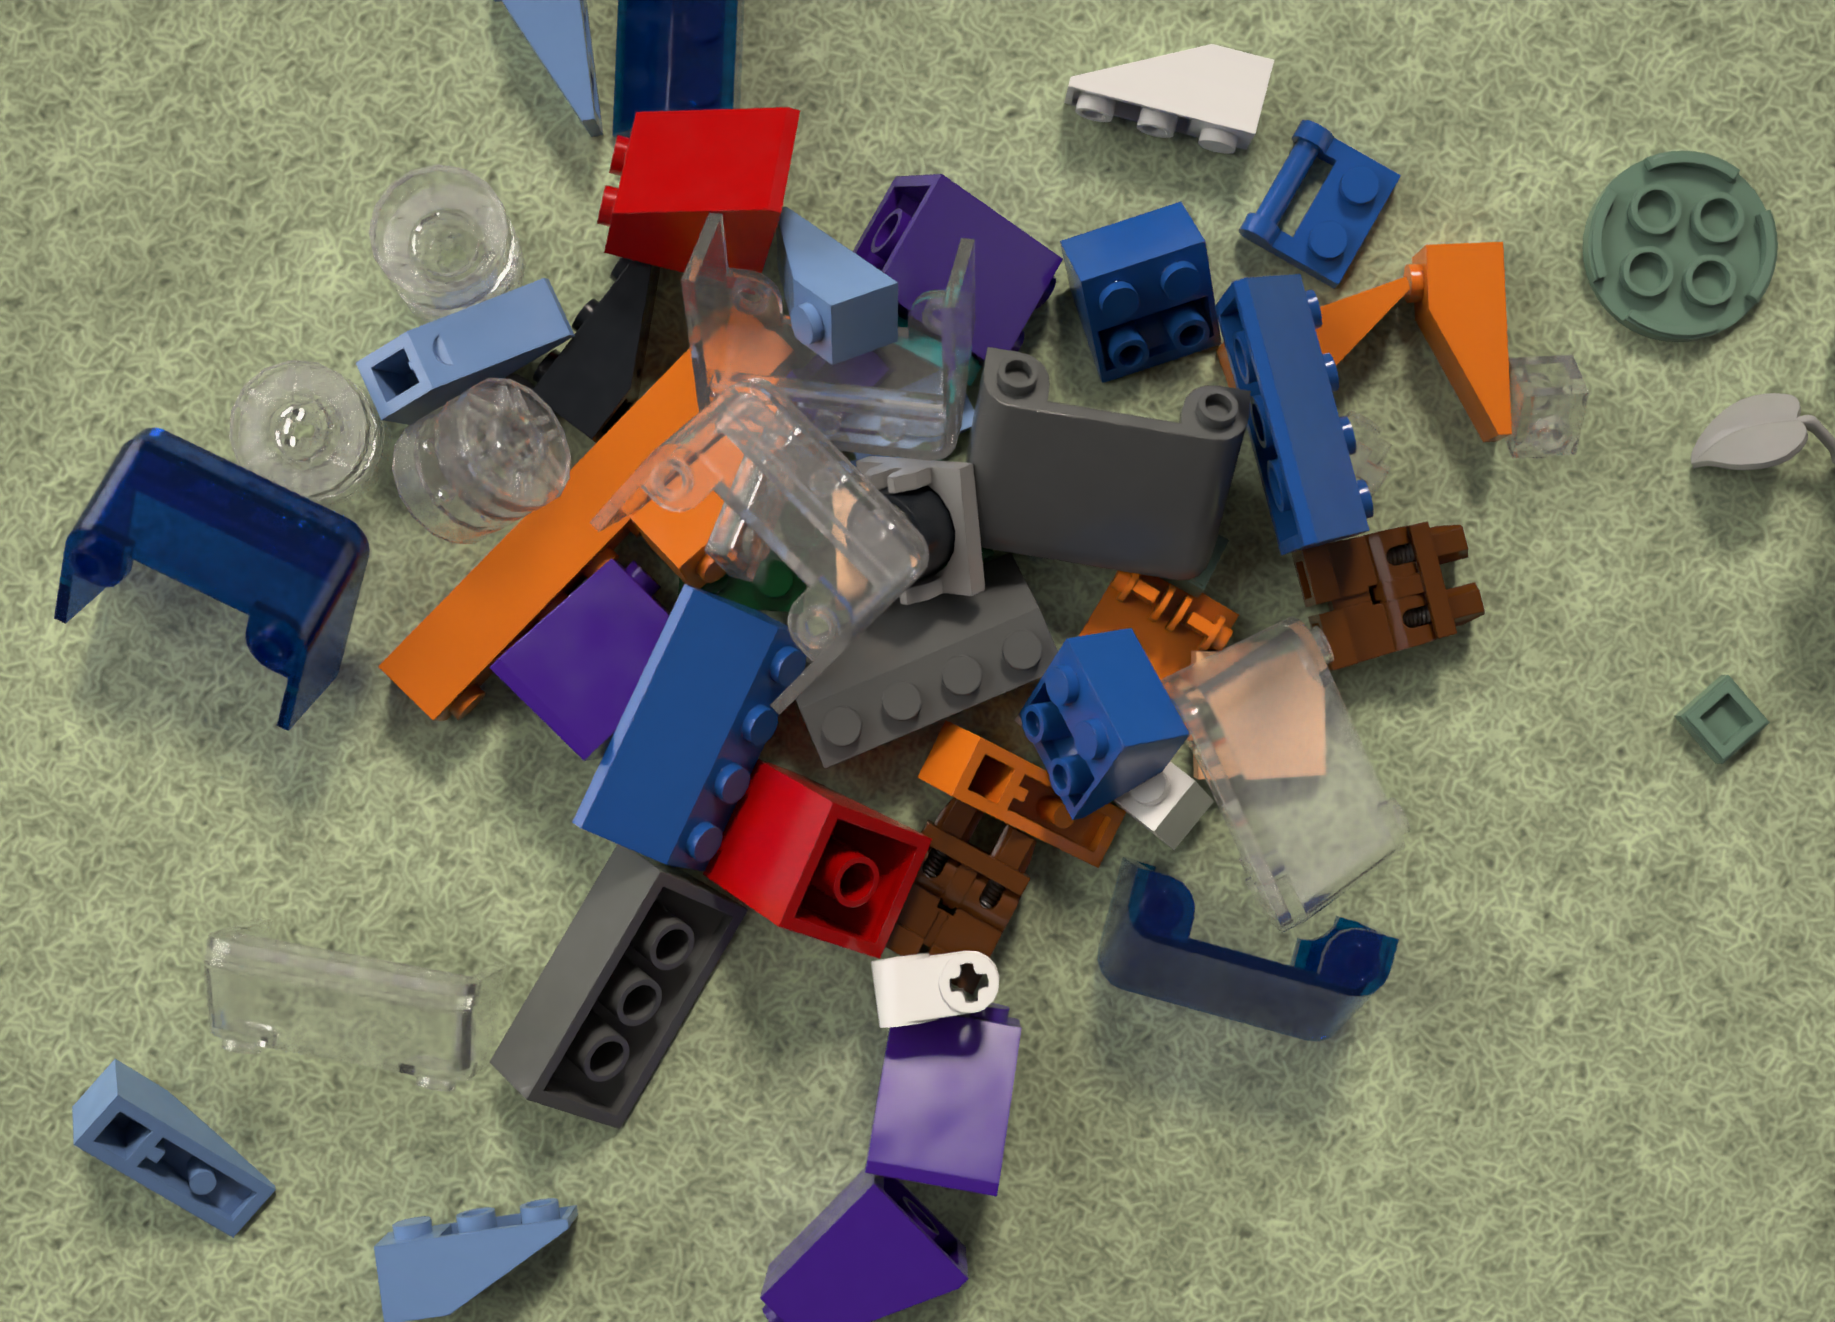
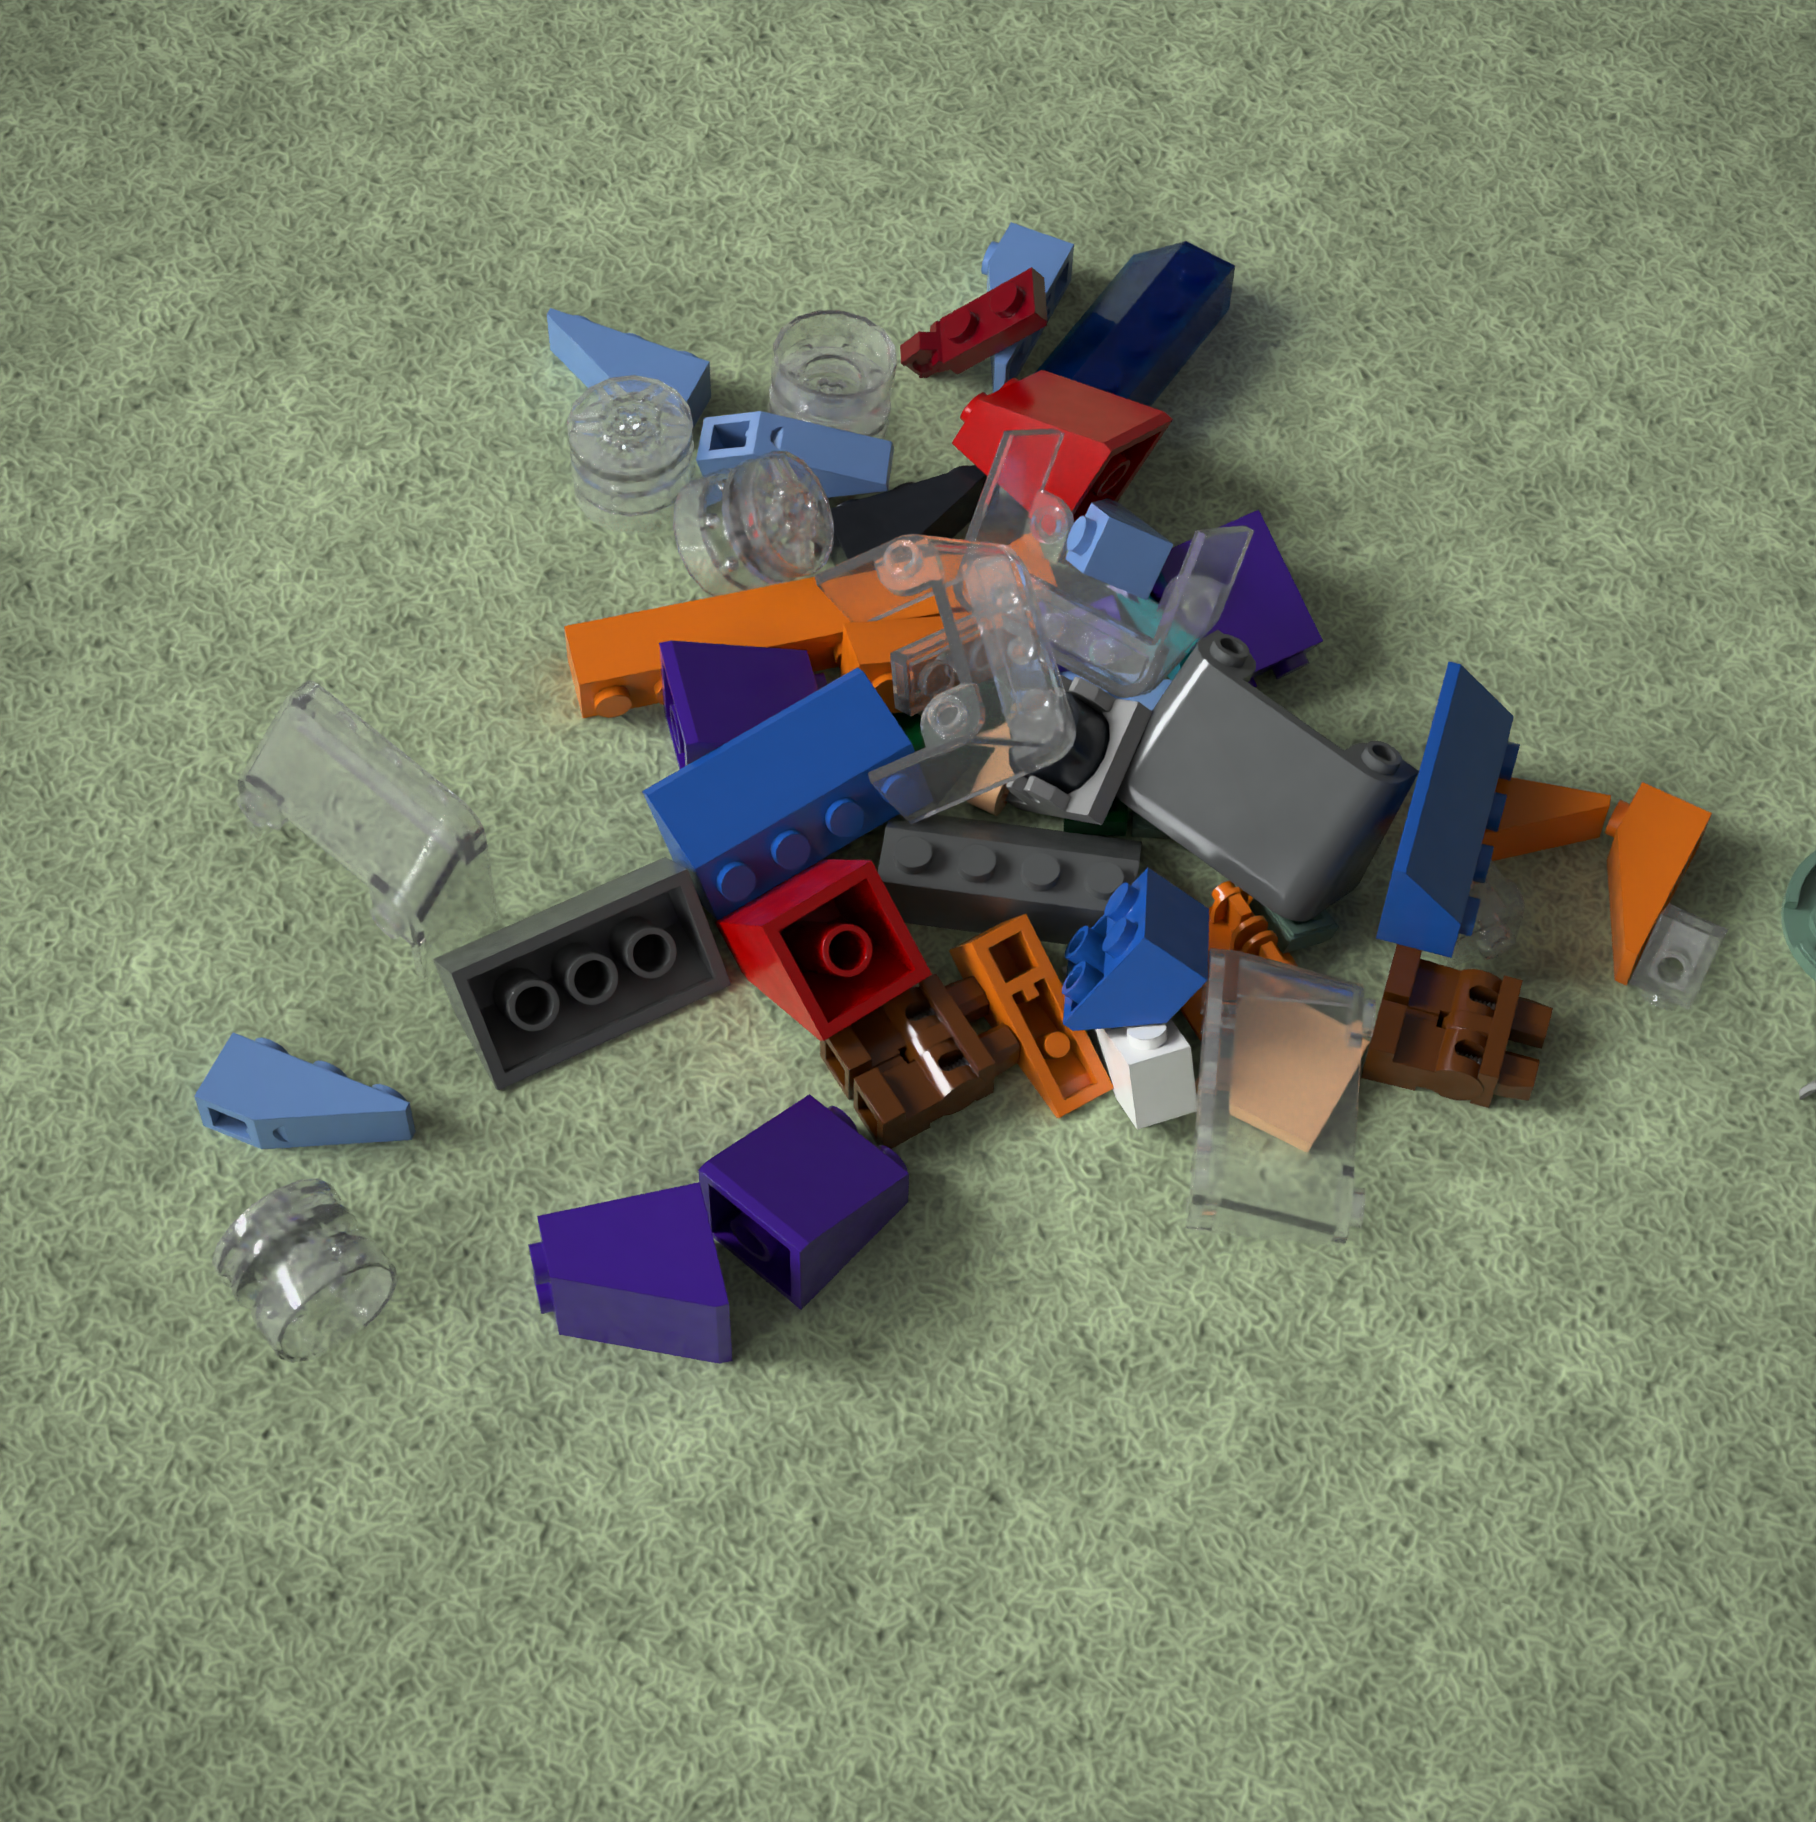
camera: 30 degrees right, 30 degrees down
(167, 1148) = (120, 887): medium blue slope -> none
(233, 540) = (554, 493): clear blue windscreen -> none
(251, 330) = (604, 353): none -> medium blue slope
(546, 89) = (979, 327): none -> dark red hinge
(921, 990) = (853, 1075): white piece -> none
(1143, 291) = (1378, 695): blue slope -> none
(1150, 954) = (1132, 1239): clear blue windscreen -> none
(1193, 92) = (1504, 592): white slope -> none
(1338, 214) = (1584, 745): blue plate -> none
(1722, 719) = (1713, 1307): sand green tile -> none

